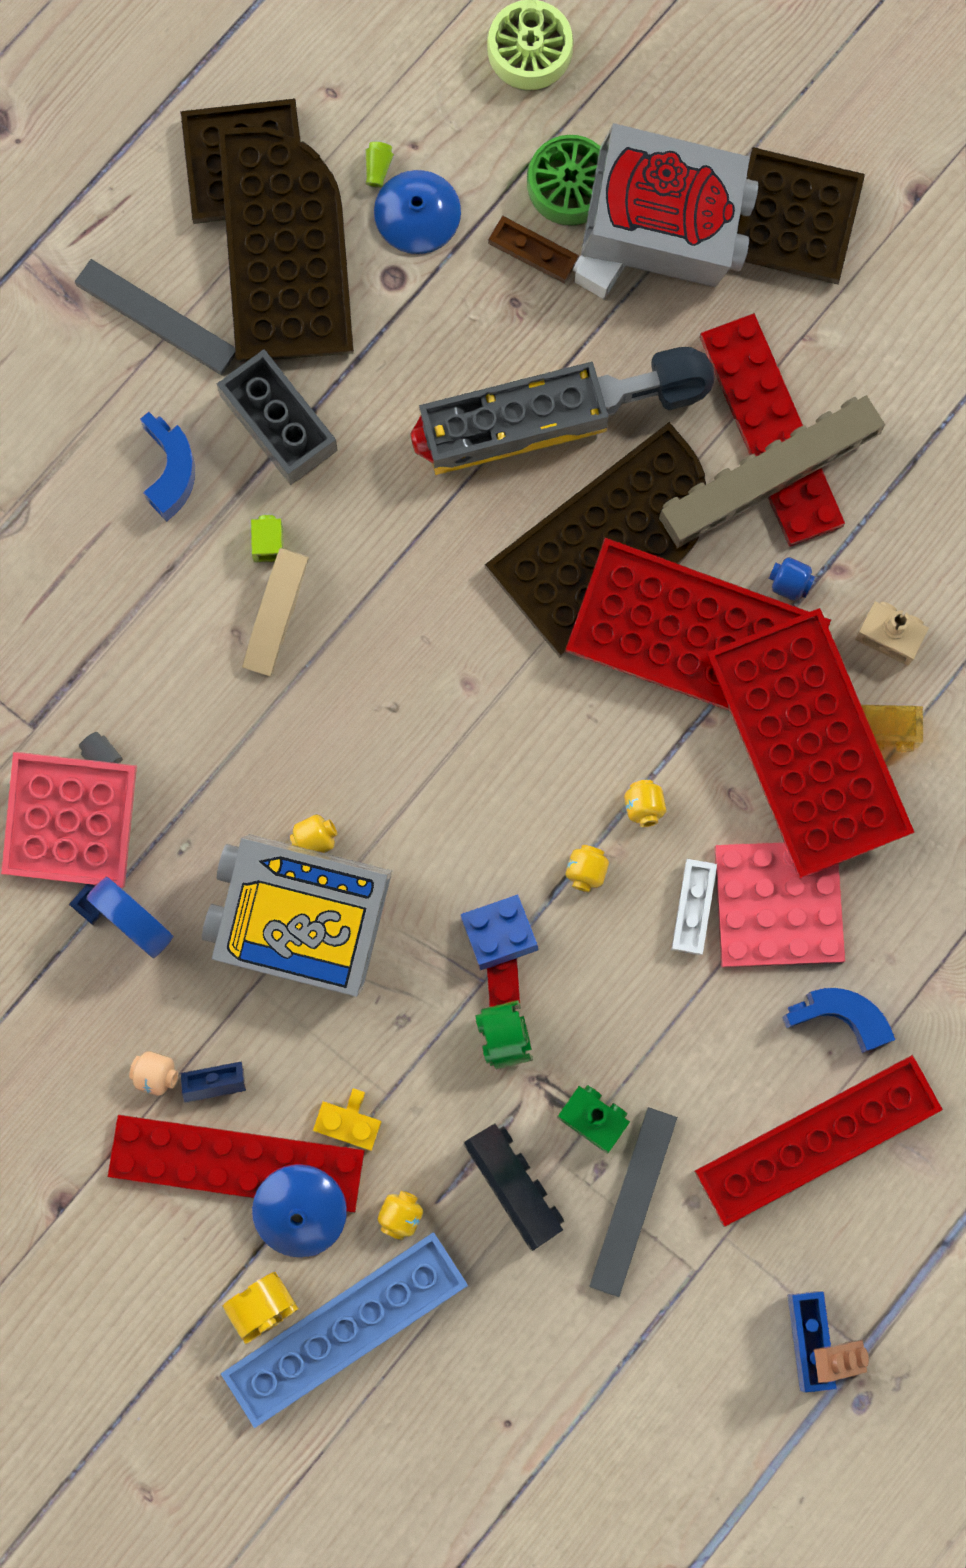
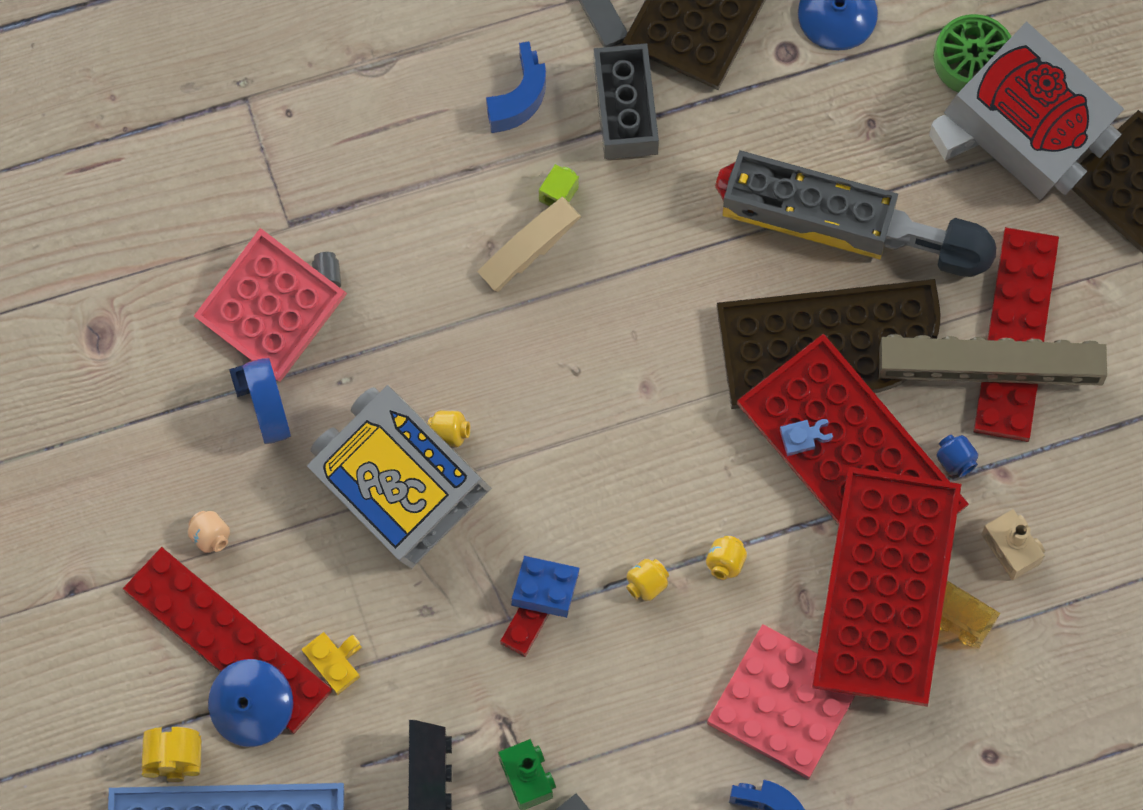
camera: 35 degrees right, 10 degrees down
(213, 1082) = (249, 565): dark blue plate -> none
(400, 1215) = (326, 754): yellow head -> none
(505, 1035) = (497, 665): green brick -> none
(533, 249) = (910, 90): reddish brown plate -> none
(645, 649) = (801, 437): none -> medium blue plate
(694, 907) = (714, 661): white plate -> none

